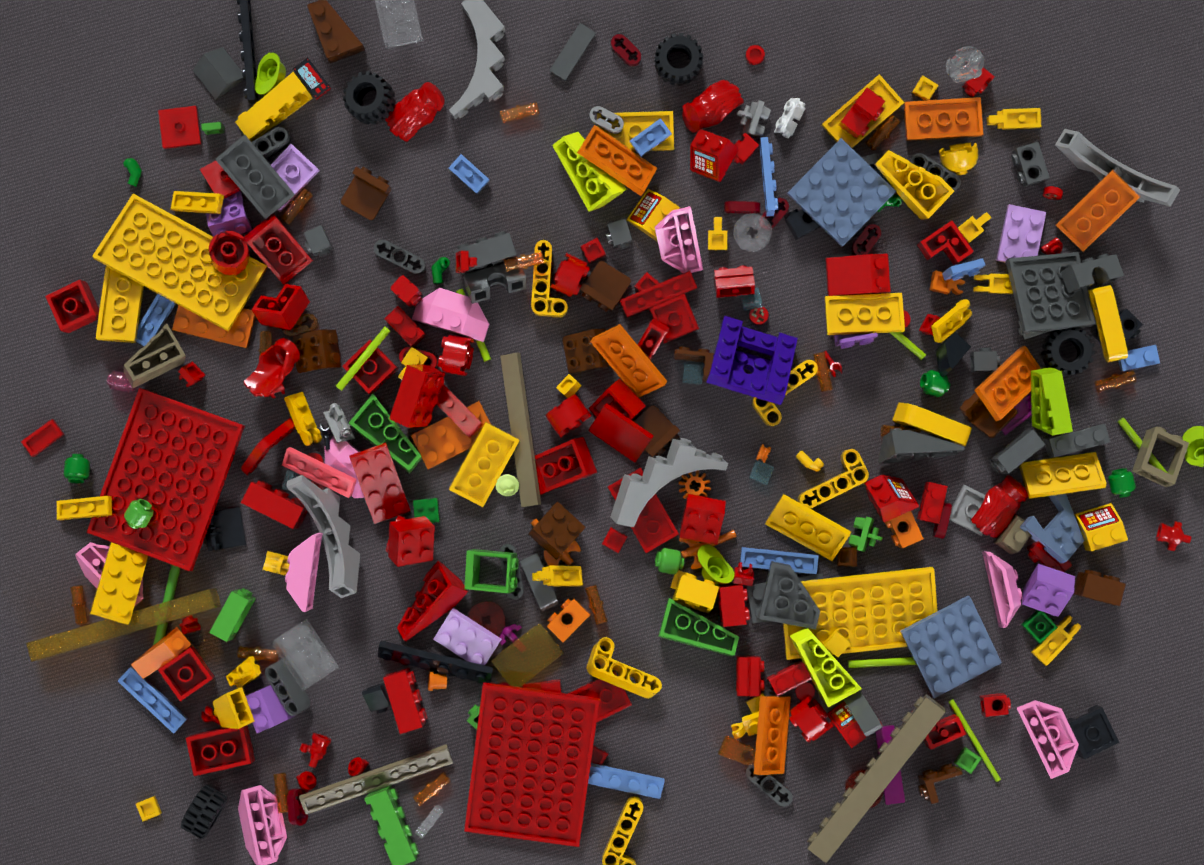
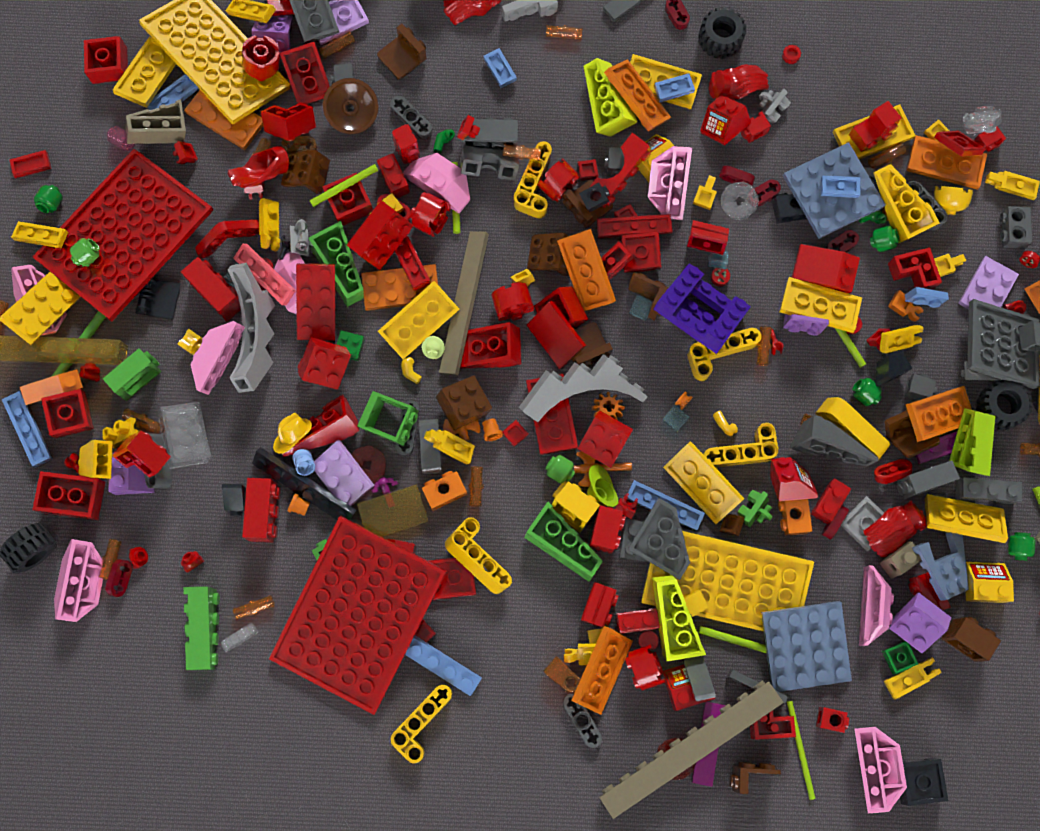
camera: 20 degrees right, 10 degrees down
(275, 689) = (143, 453): none -> red brick
(317, 749) = (160, 530): red piece -> none
(344, 281) = (355, 93): none -> reddish brown dish
(375, 779) = (203, 577): dark tan tile -> none
(404, 615) = (290, 432): none -> yellow piece
(427, 640) = (303, 462): none -> light blue wheel
(491, 516) = (407, 370): none -> yellow arm
(591, 546) = (491, 430): none -> orange piece
(609, 116) = (640, 60): light grey beam -> none
(609, 293) = (586, 196): none -> black brick
(617, 270) = (634, 152): none -> red arch
(767, 168) = (771, 151): medium blue plate -> none
(793, 109) = (811, 110): white hinge -> none
(847, 191) = (840, 186): none -> medium blue plate
(906, 222) = (885, 238): none -> green head
(911, 698) = (748, 682): none -> dark grey tile
(950, 98) = (959, 143): none -> red plate
(967, 760) = (788, 767): bright green tile -> none
(981, 452) = (893, 471): none -> red plate
(996, 284) = (954, 322): yellow hinge -> none

